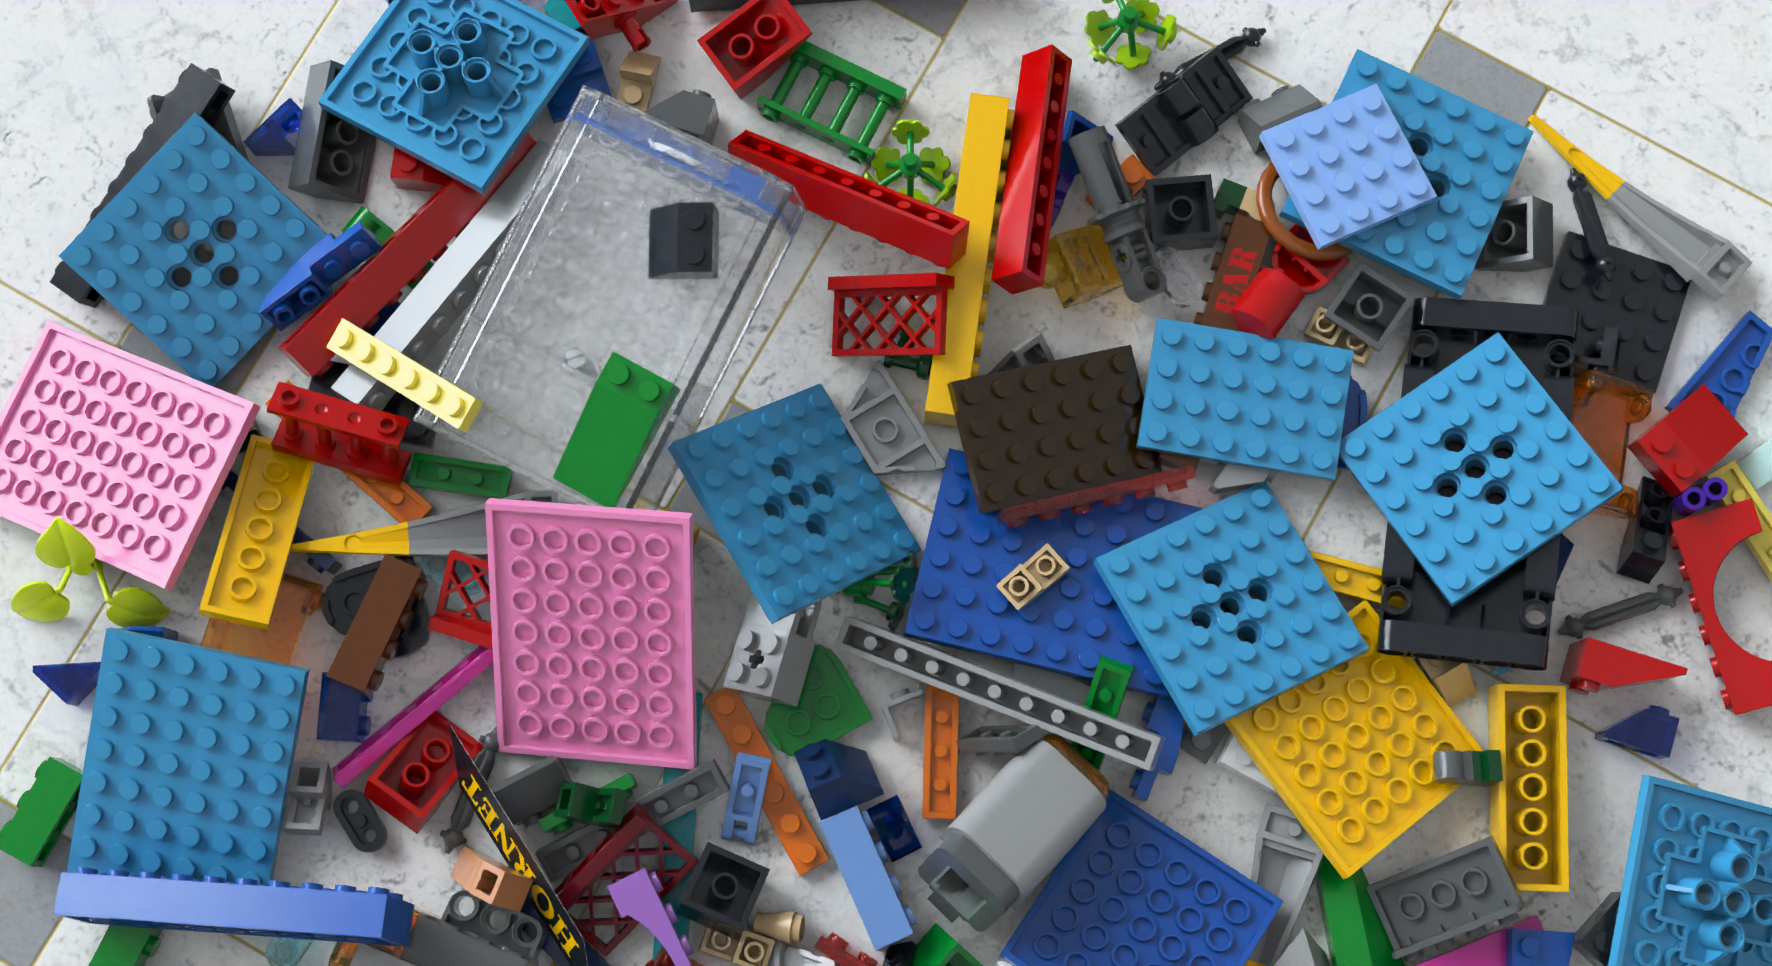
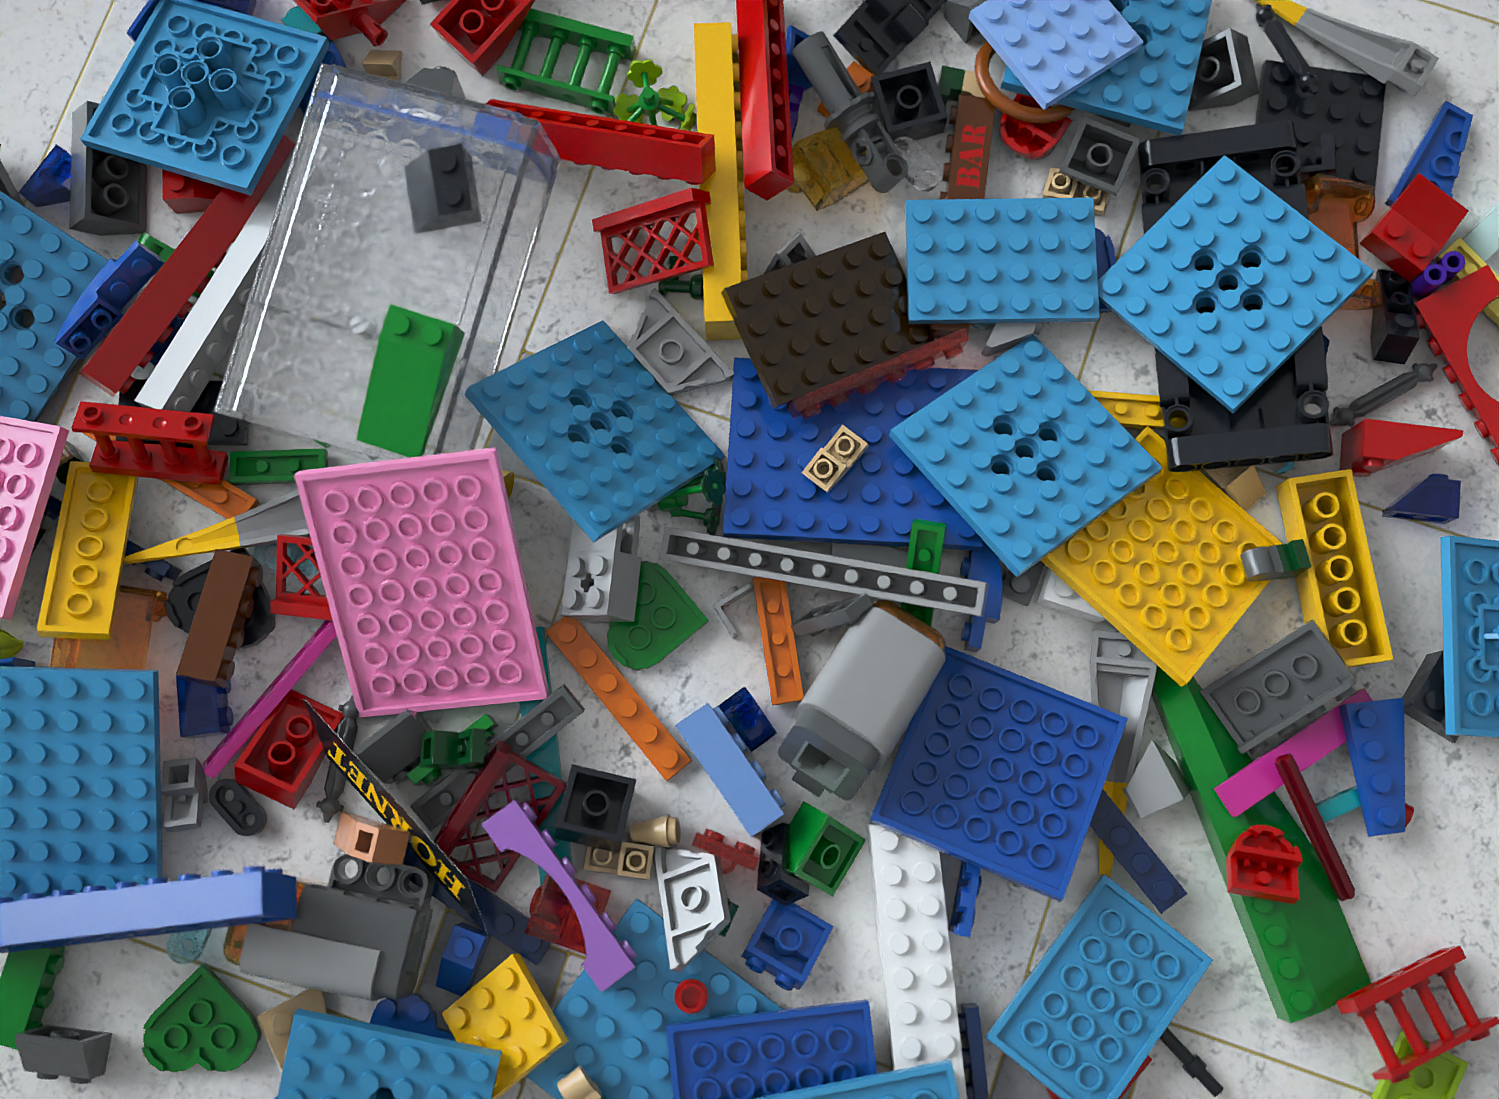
camera: 10 degrees left, 0 degrees up
(405, 375) = (199, 371): light yellow plate -> none
(746, 797) = (602, 716): medium blue plate -> none
(837, 776) = (684, 680): dark blue slope -> none
(1267, 303) = (1004, 169): red brick -> none

